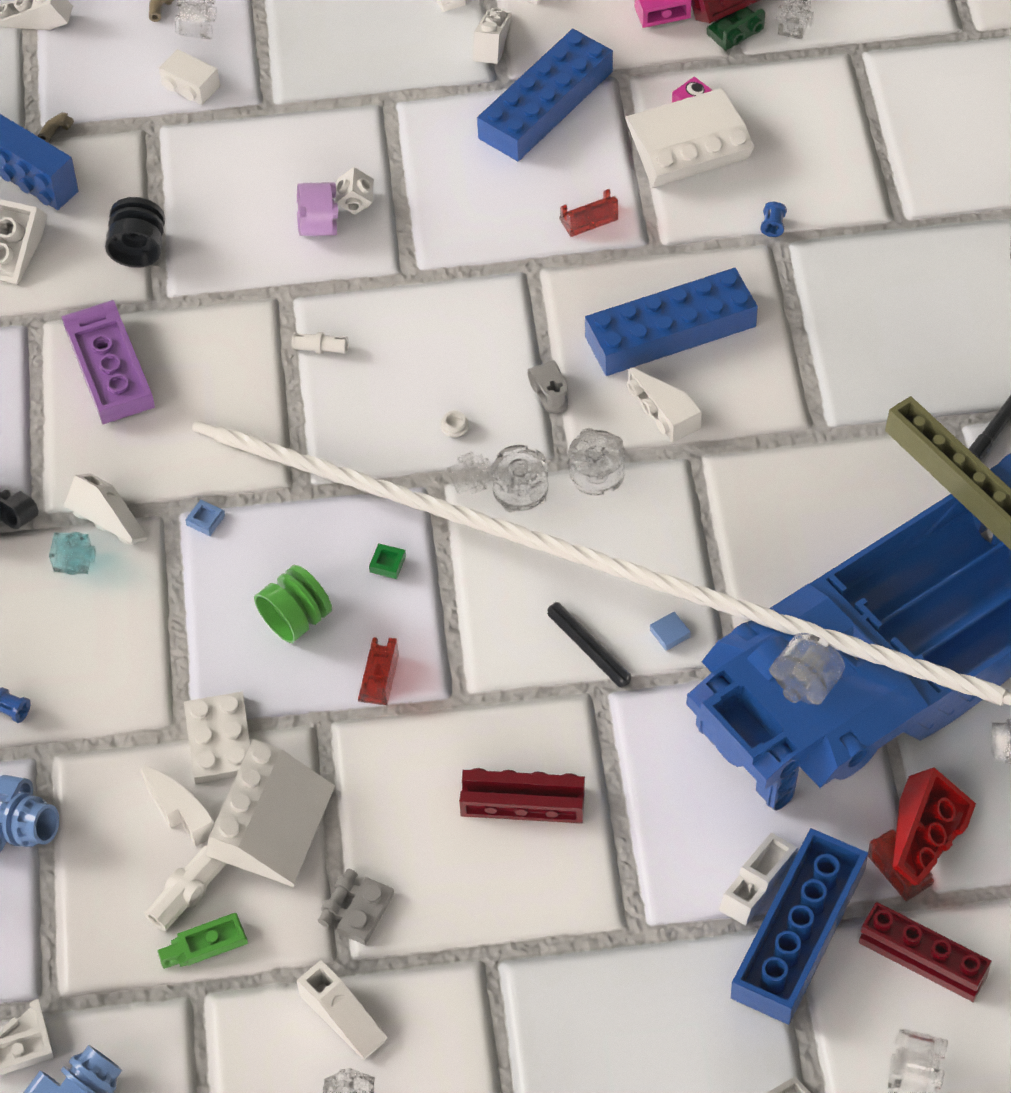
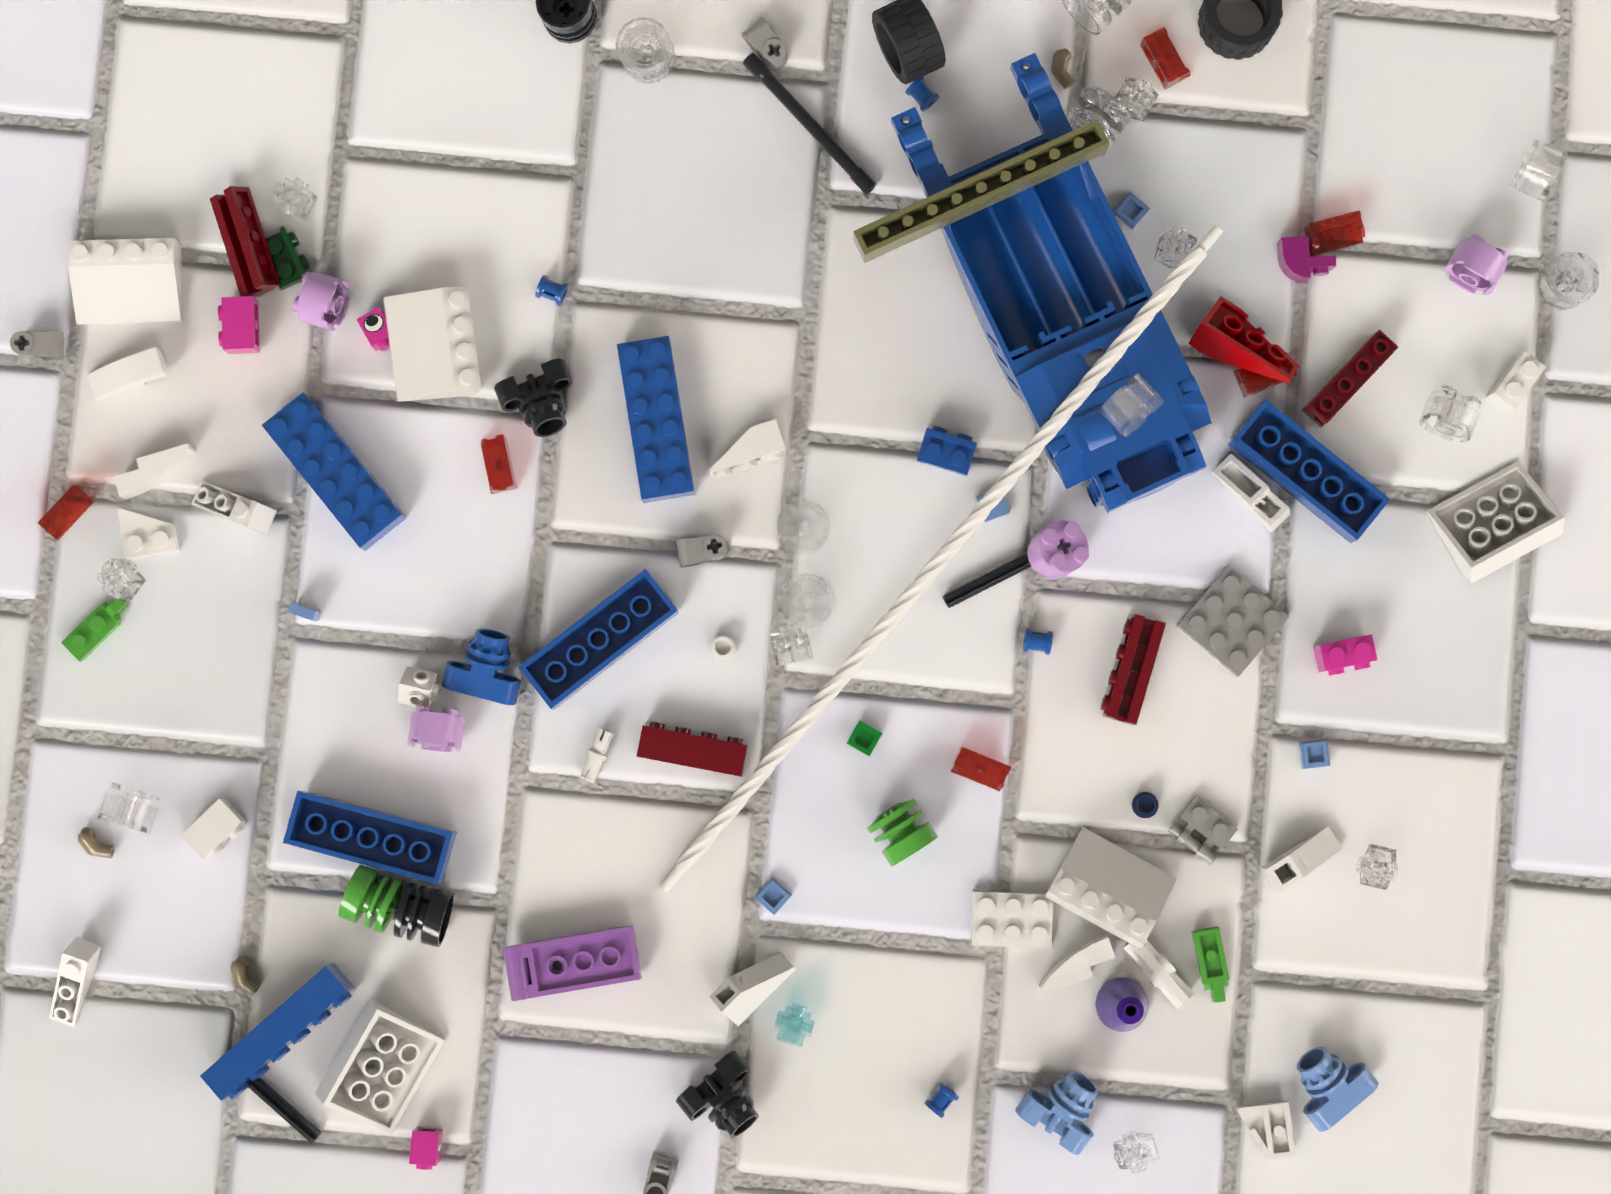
camera: 80 degrees left, 30 degrees up
(139, 858) = (1115, 998): none -> dark purple cone
(145, 179) = (369, 898): none -> bright green wheel
(202, 184) = (369, 837): none -> blue brick
(341, 415) = (692, 750): none -> dark red brick
(372, 841) = (1145, 805): none -> dark blue plate
(384, 233) = (487, 654): none -> blue beam
(407, 100) = (304, 612): none -> medium blue tile
(436, 317) = (598, 639): none -> blue brick
(470, 1008) = (1314, 754): none -> medium blue tile
(531, 700) = (1037, 641): none -> blue bush
(596, 1010) = (1345, 653): none -> dark pink brick
(604, 891) = (1232, 621): none -> light grey plate
(641, 704) = (1058, 549): none -> lavender brick
(656, 228) = (538, 397): none -> black beam
(704, 51) = (322, 300): none -> lavender brick
(716, 569) = (946, 450): none -> blue bracket

